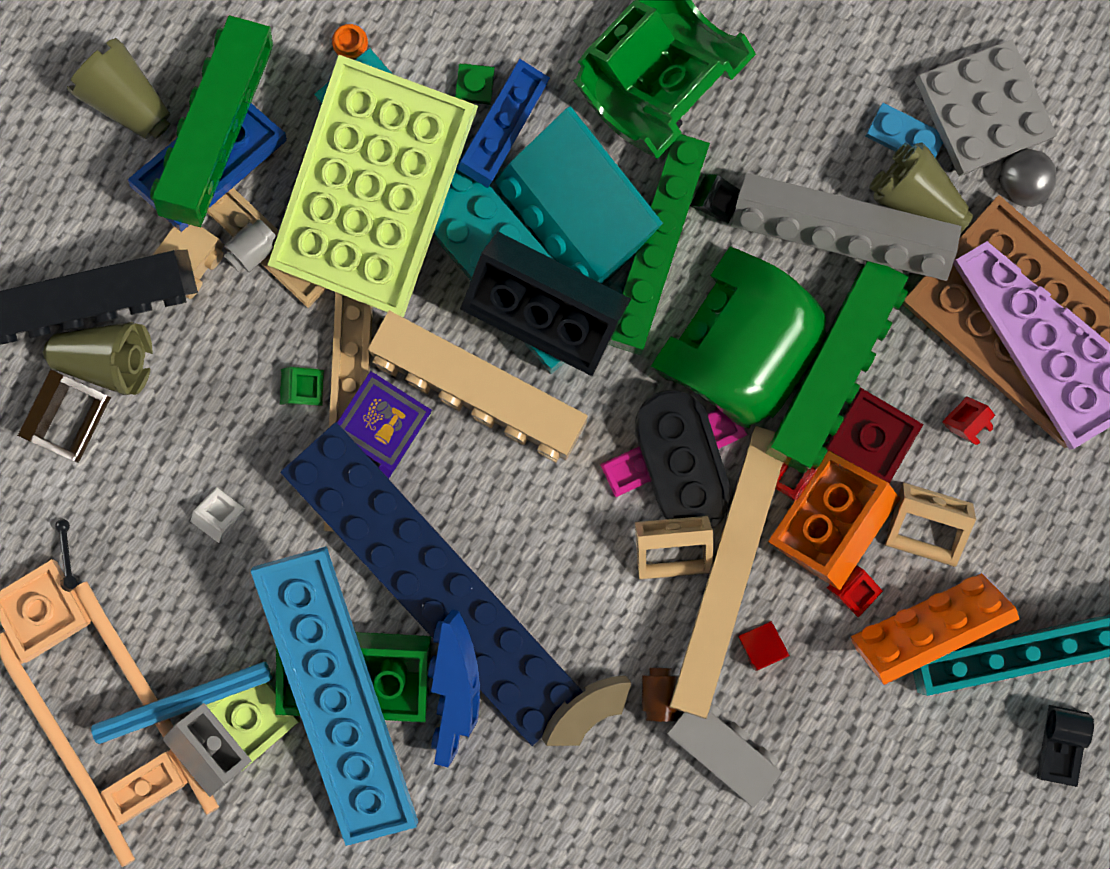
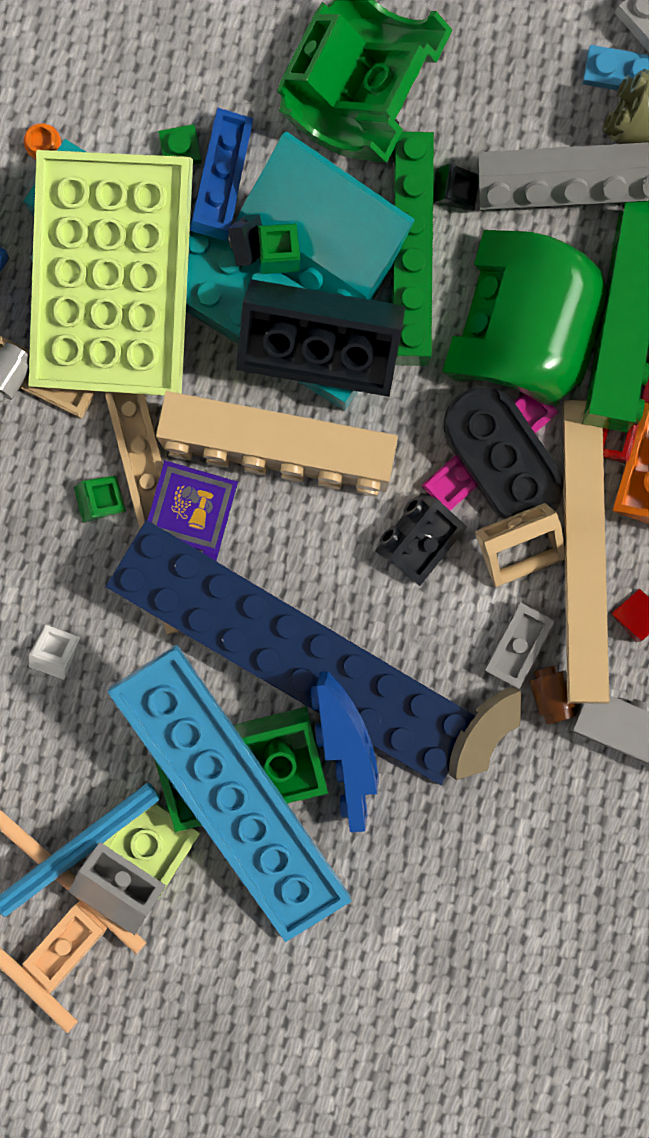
camera: 15 degrees left, 0 degrees up
(506, 193) = (244, 239): none -> black plate
(532, 209) = (279, 248): none -> green slope
(583, 513) = (420, 537): none -> black bracket
(643, 640) = (519, 645): none -> light grey plate

